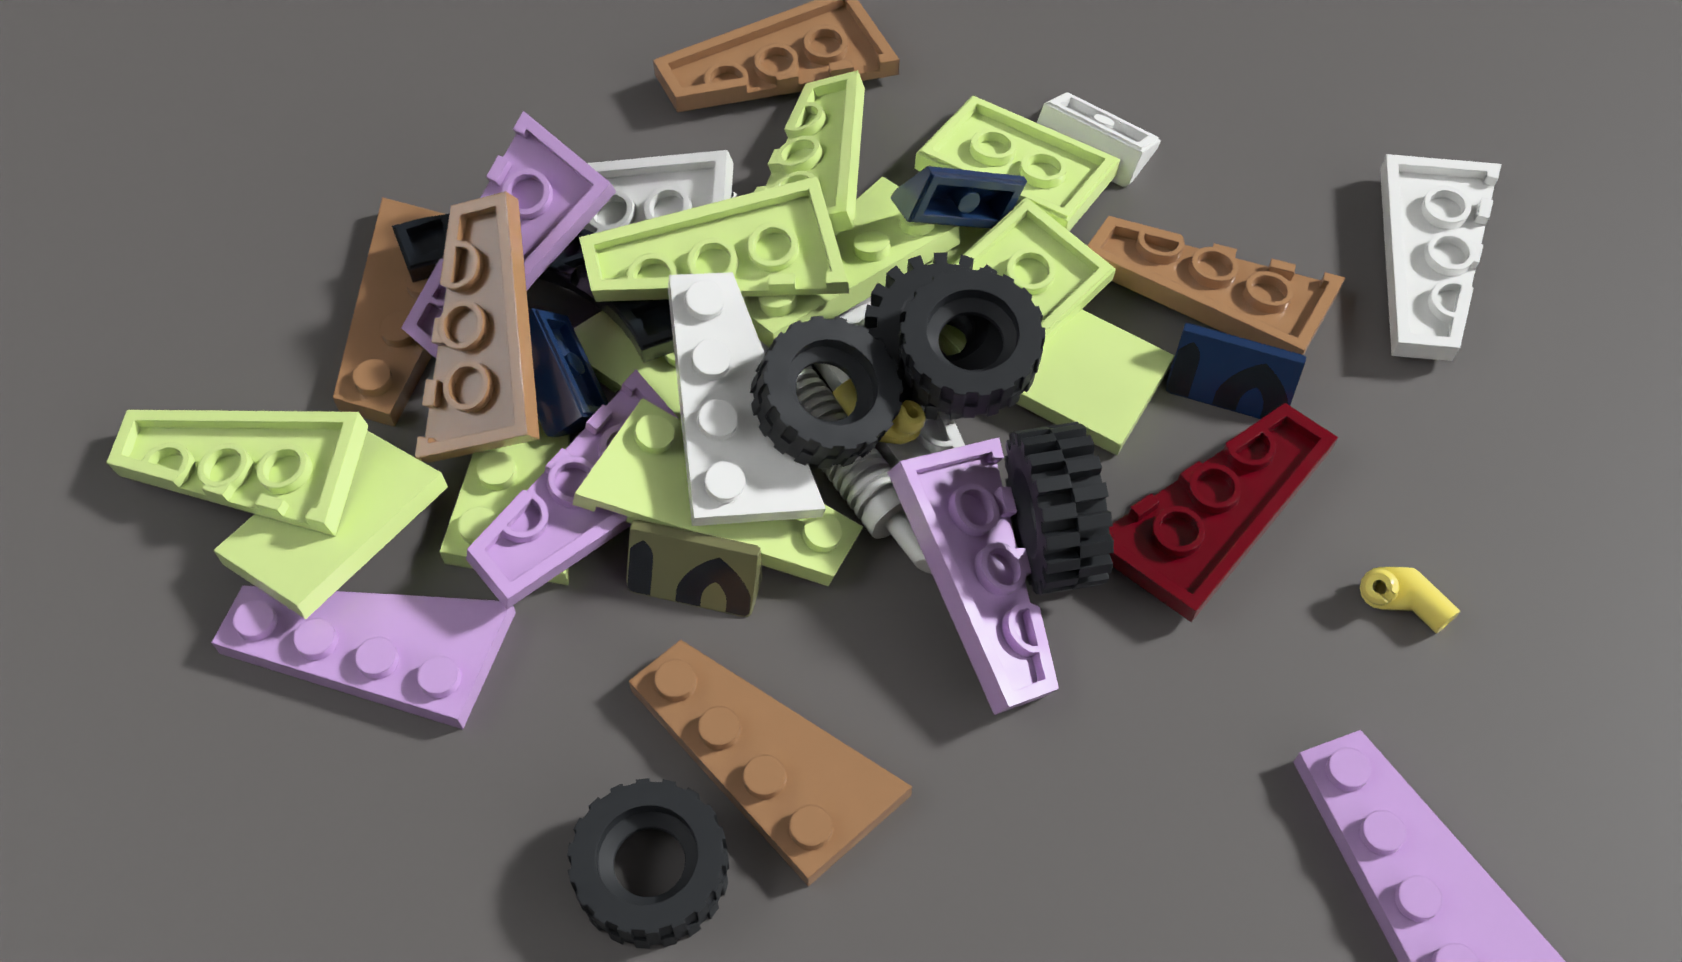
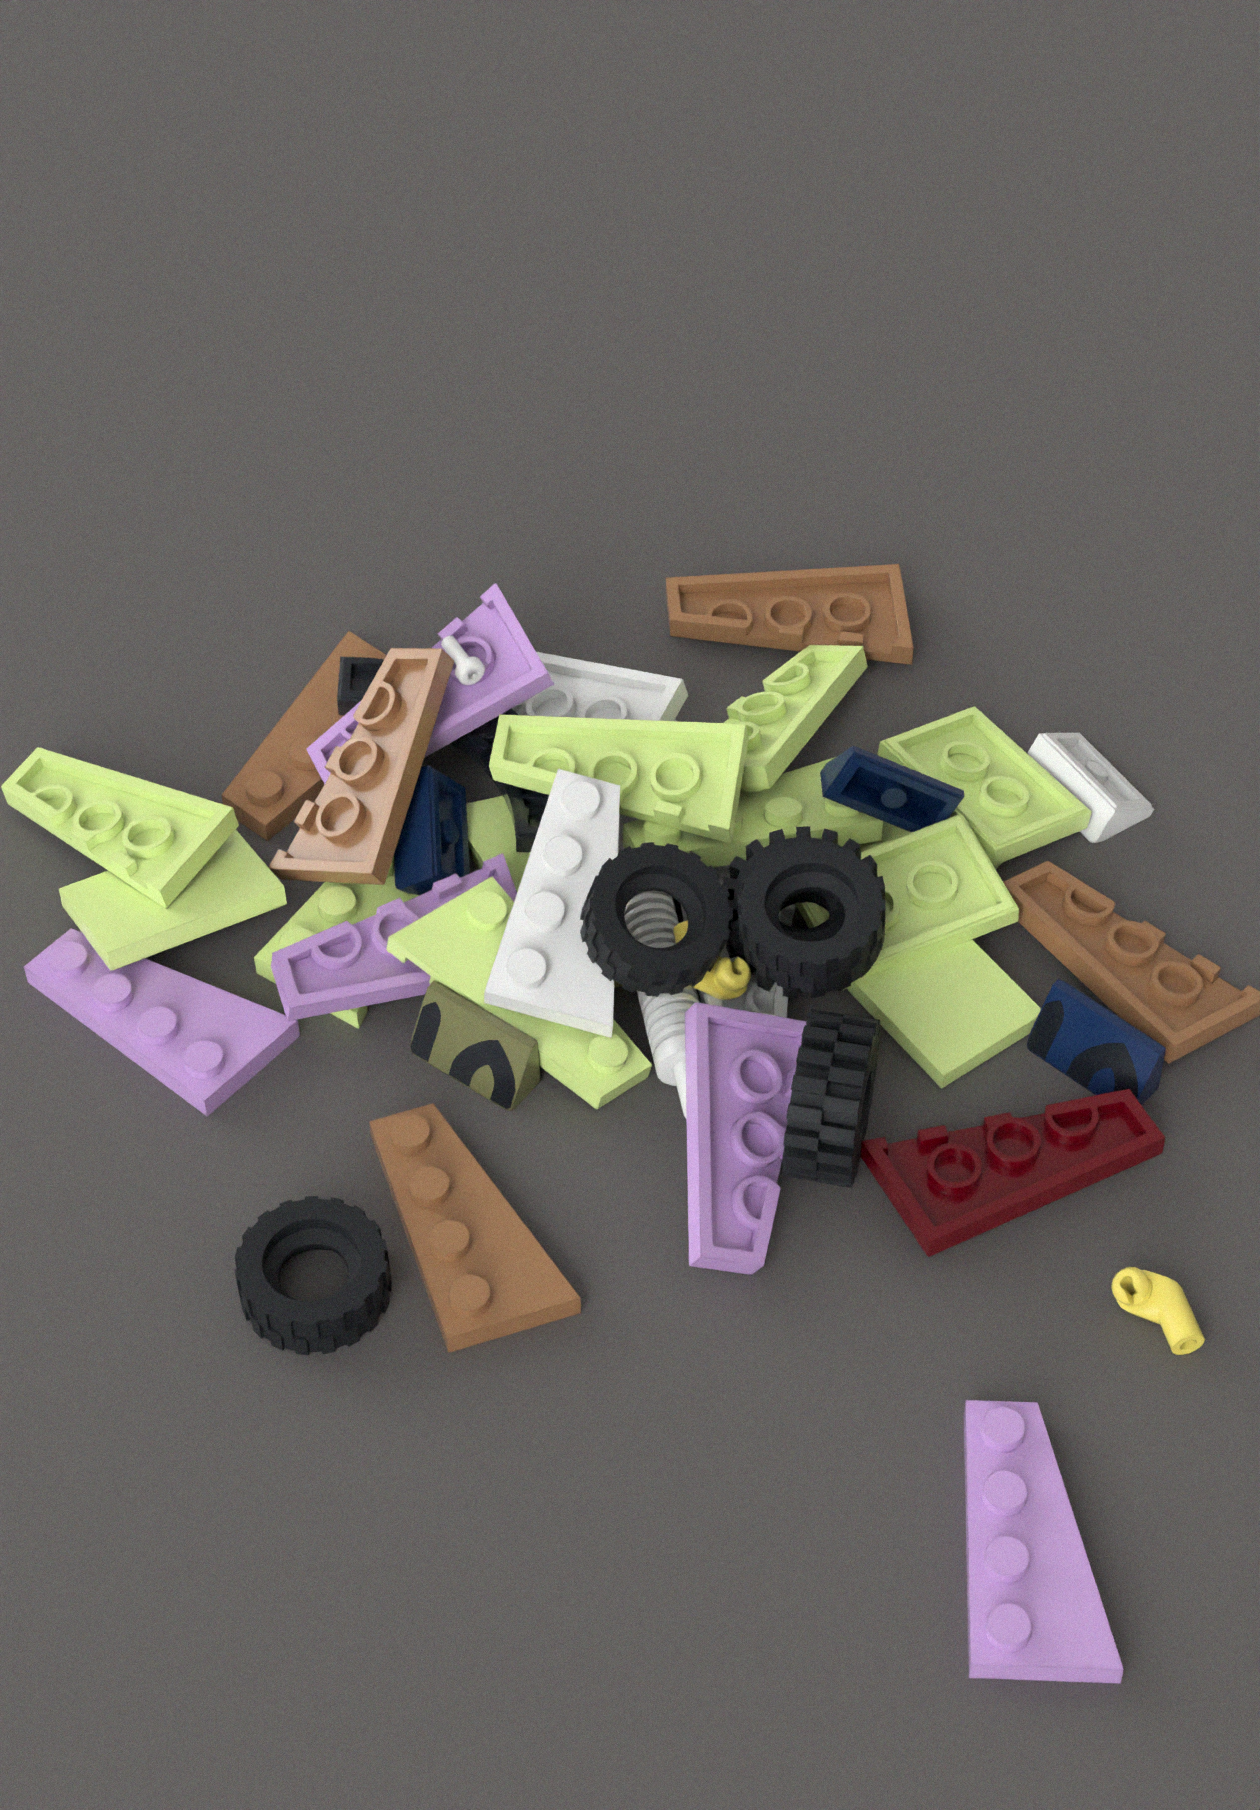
camera: 25 degrees right, 10 degrees down
(534, 202) = (468, 669): none -> white piece

